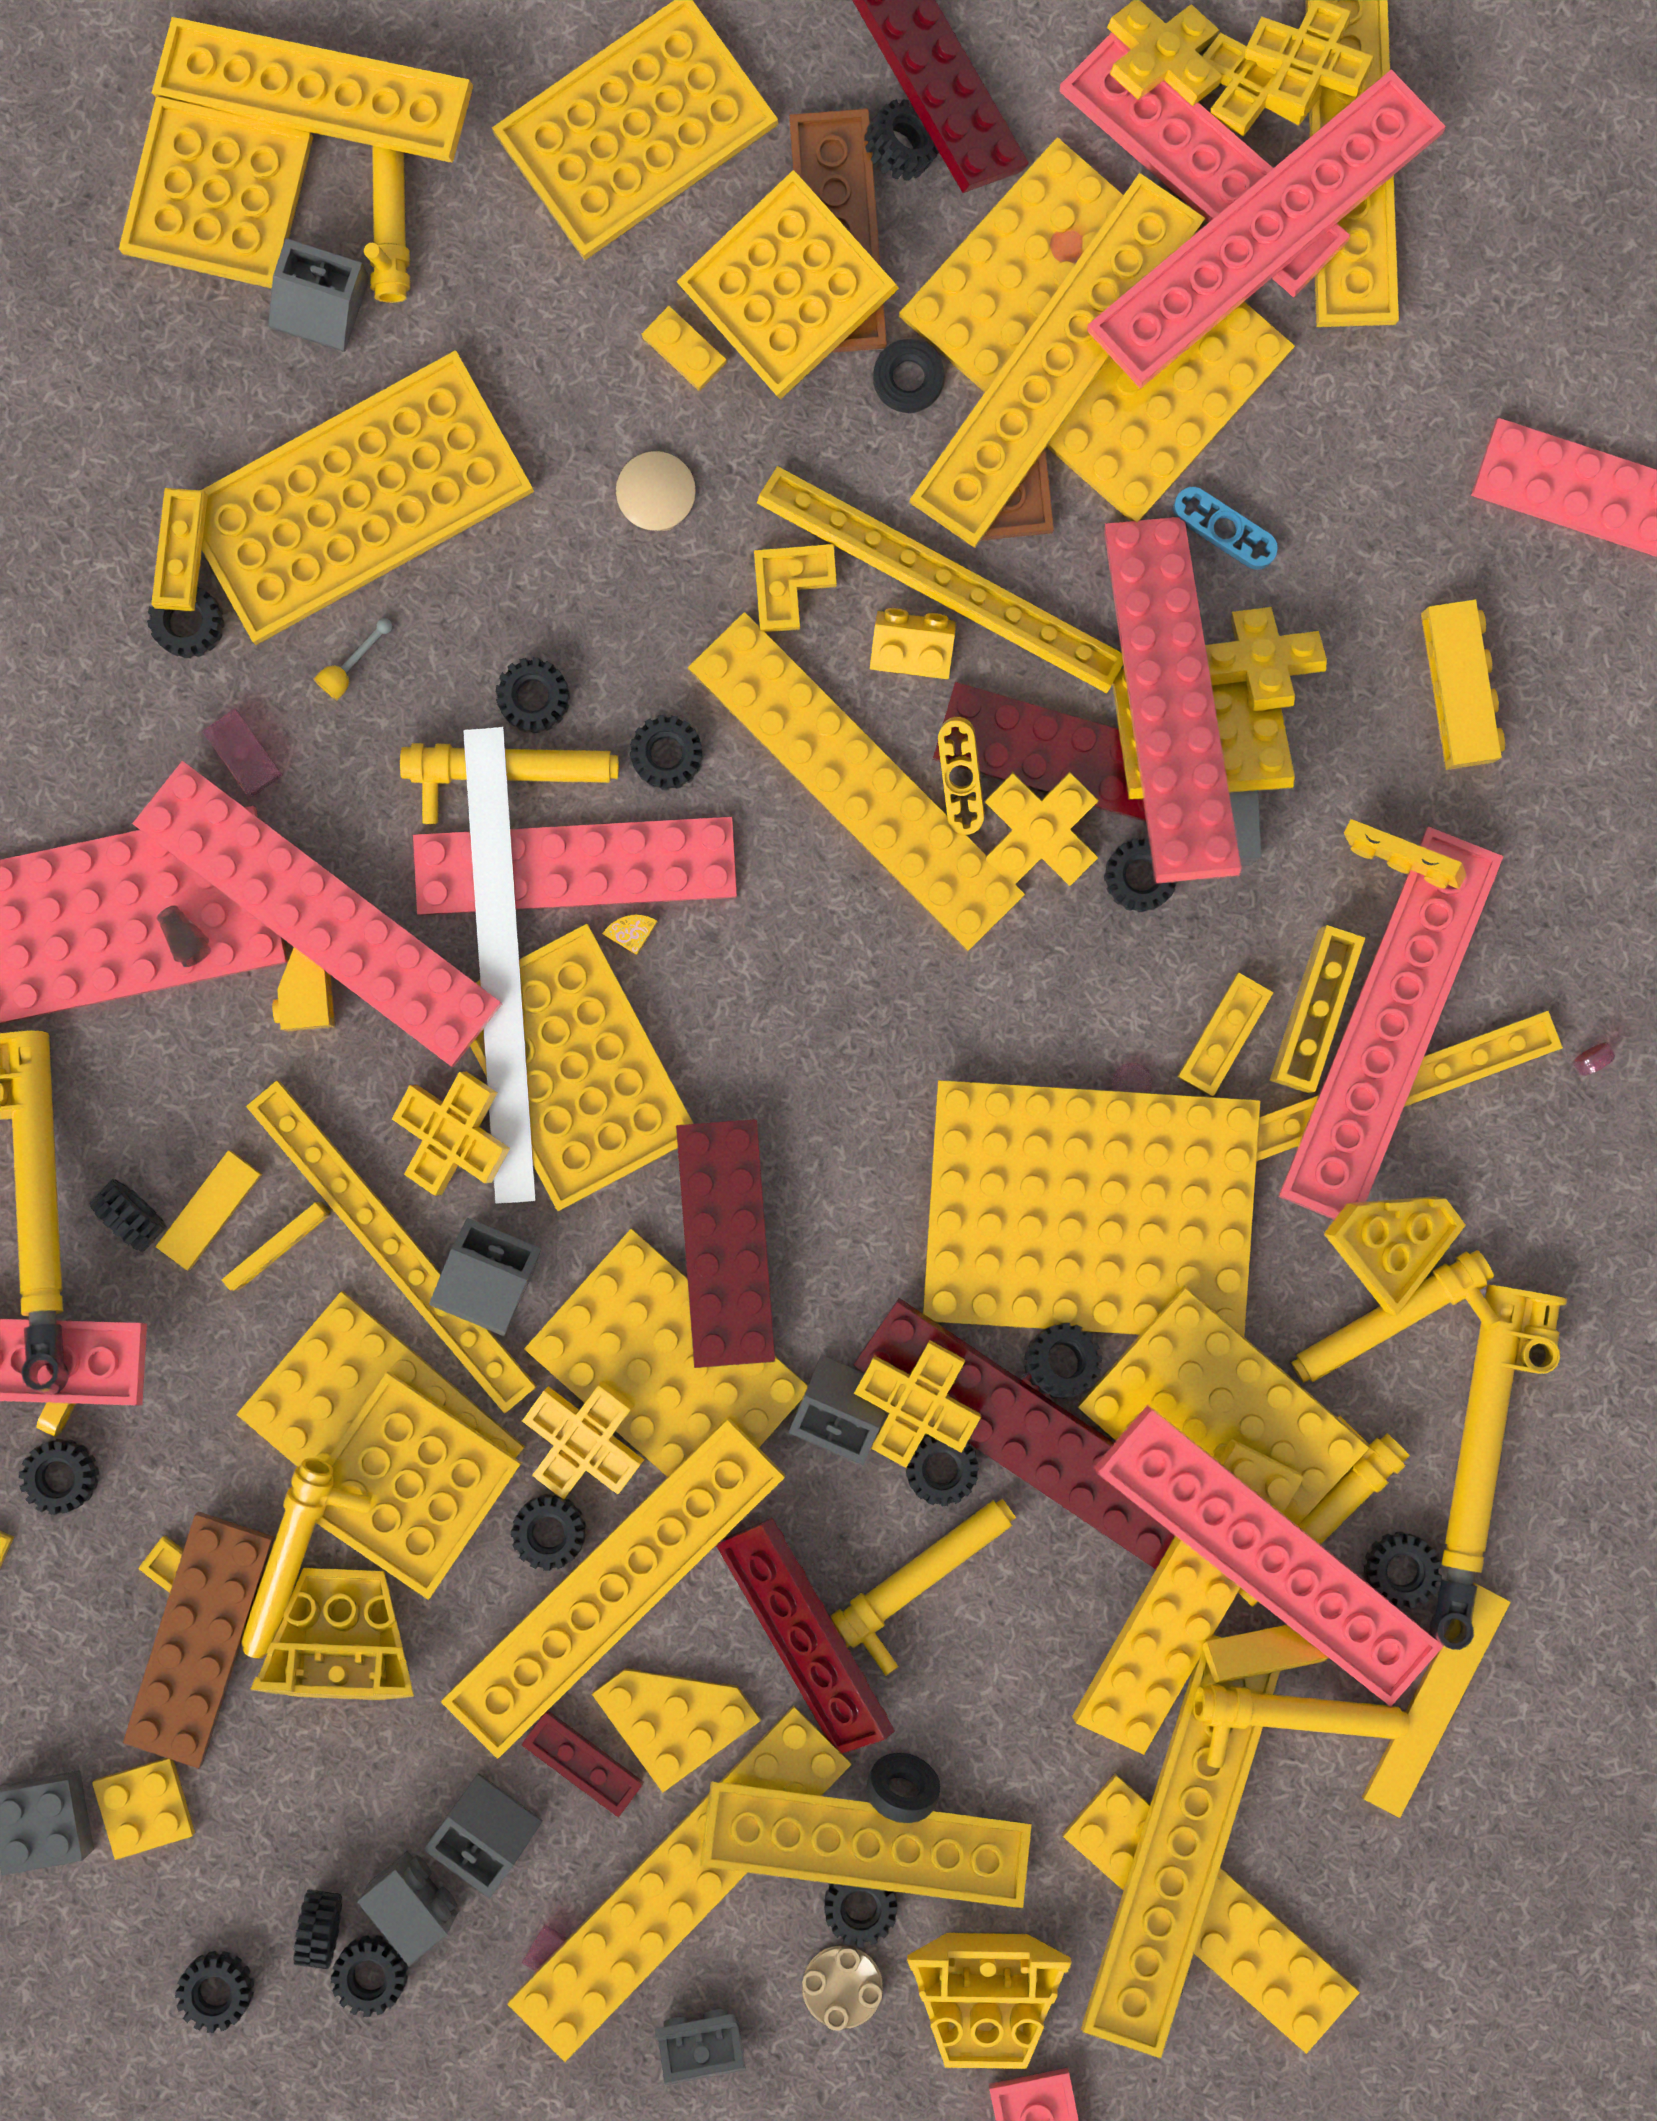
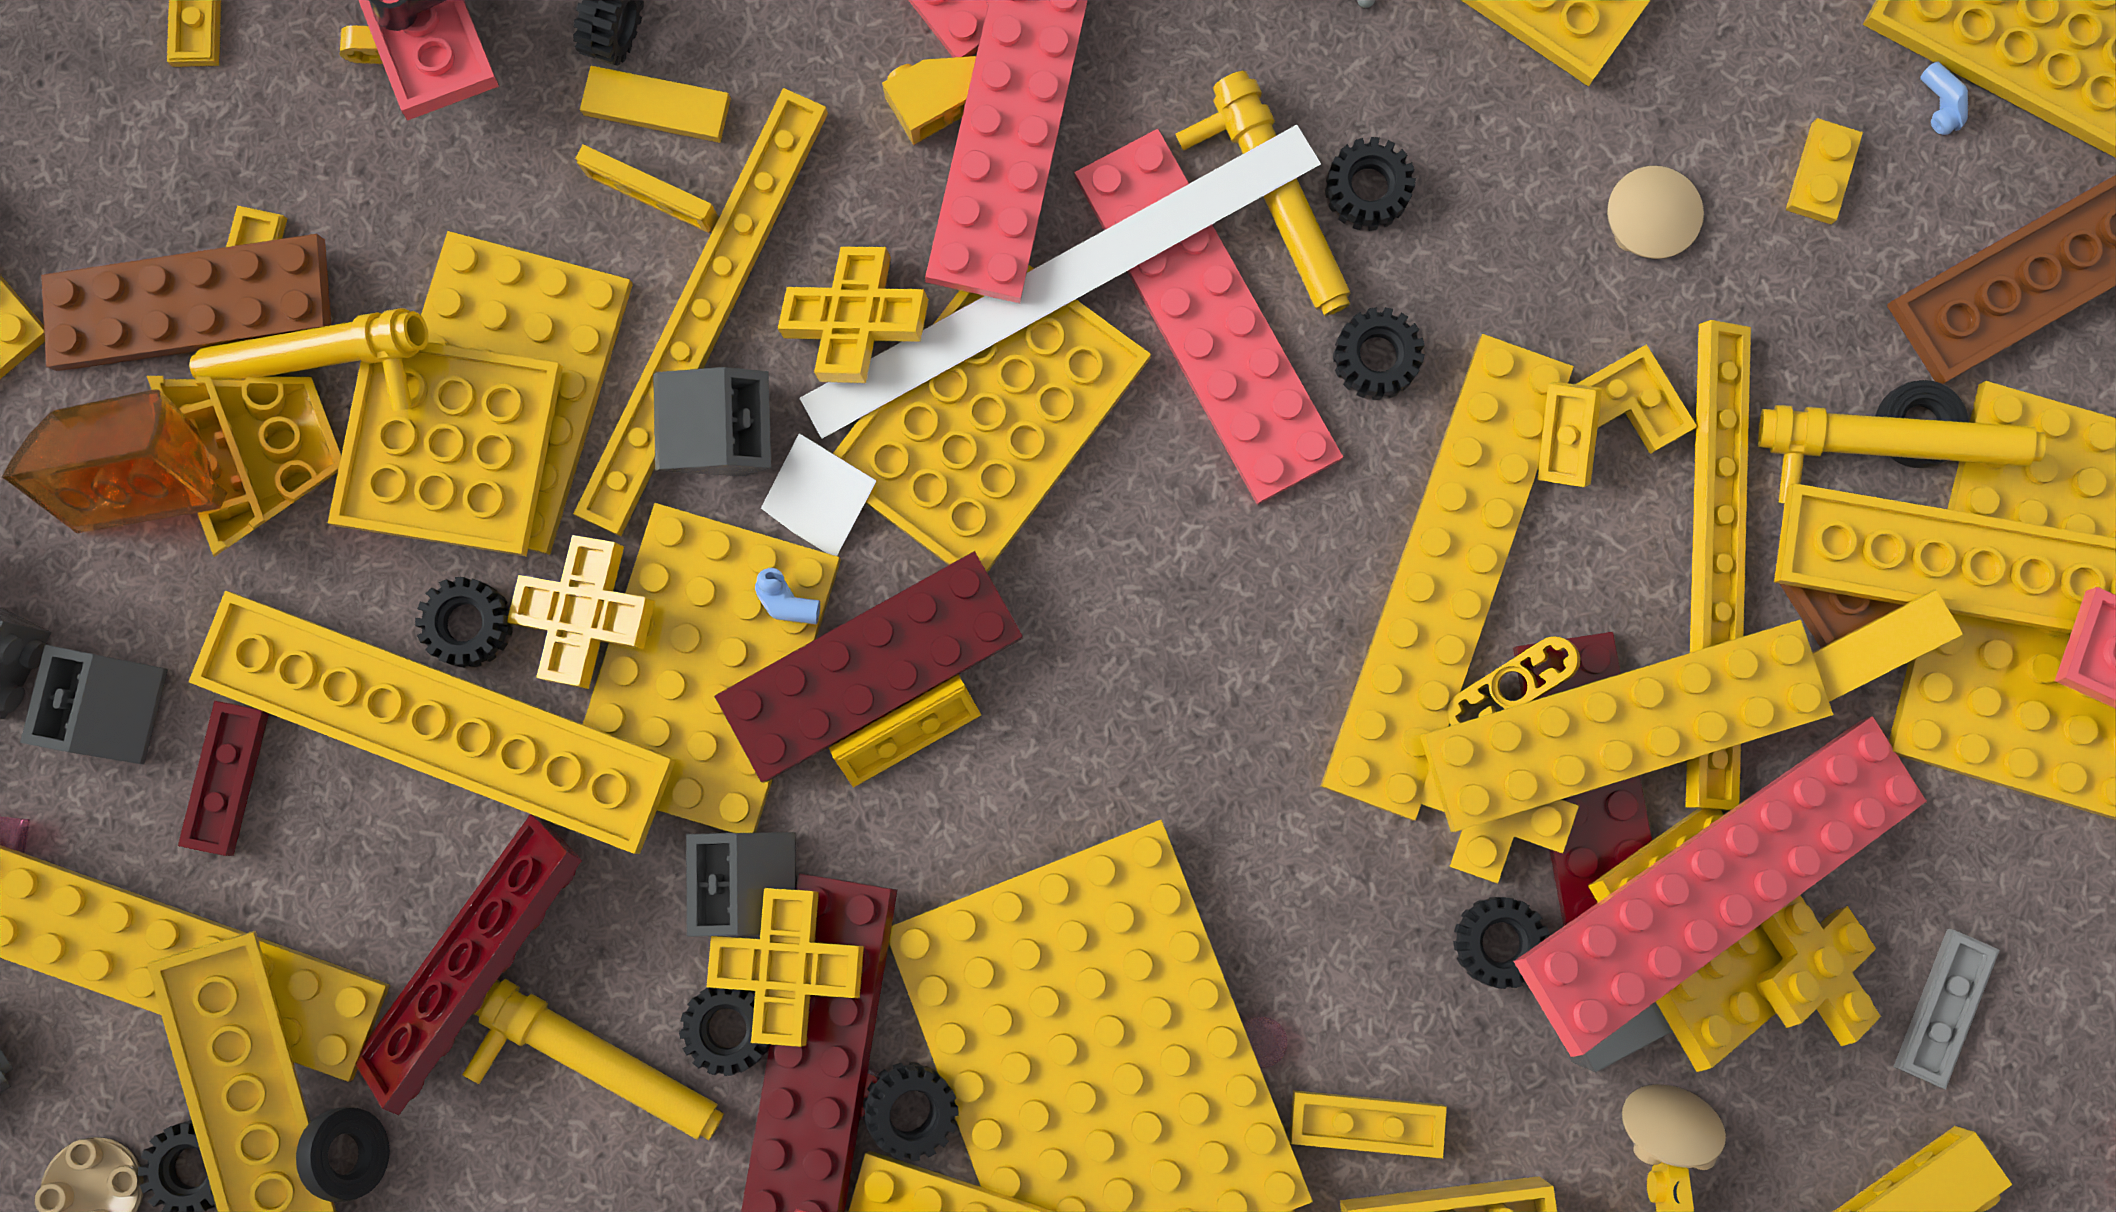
camera: 65 degrees right, 5 degrees down
(35, 1481) = (281, 60): black tyre -> none
(309, 1738) = (116, 463): none -> clear orange windscreen
(576, 1223) = (818, 495): none -> white sticker
(631, 931) = (1164, 407): yellow tile -> none
(647, 1286) = (780, 600): none -> light blue arm
(674, 1720) = (316, 858): yellow plate -> none
(675, 224) = (1953, 98): none -> light blue arm
(785, 1238) = (905, 731): none -> yellow tile
(787, 284) = (1957, 244): yellow plate -> none
(795, 642) = (1569, 434): none -> yellow plate
(879, 458) = (1819, 432): none -> yellow cylinder
(913, 643) = (1630, 565): yellow bracket -> none
(1028, 710) = (1625, 725): none -> yellow plate
(1058, 518) = (1885, 644): none -> yellow tile
(1223, 511) = (1955, 844): dark azure beam -> none
(1327, 817) = (1673, 1127): none -> tan dish
(1336, 577) = (1946, 1008): none -> light grey tile

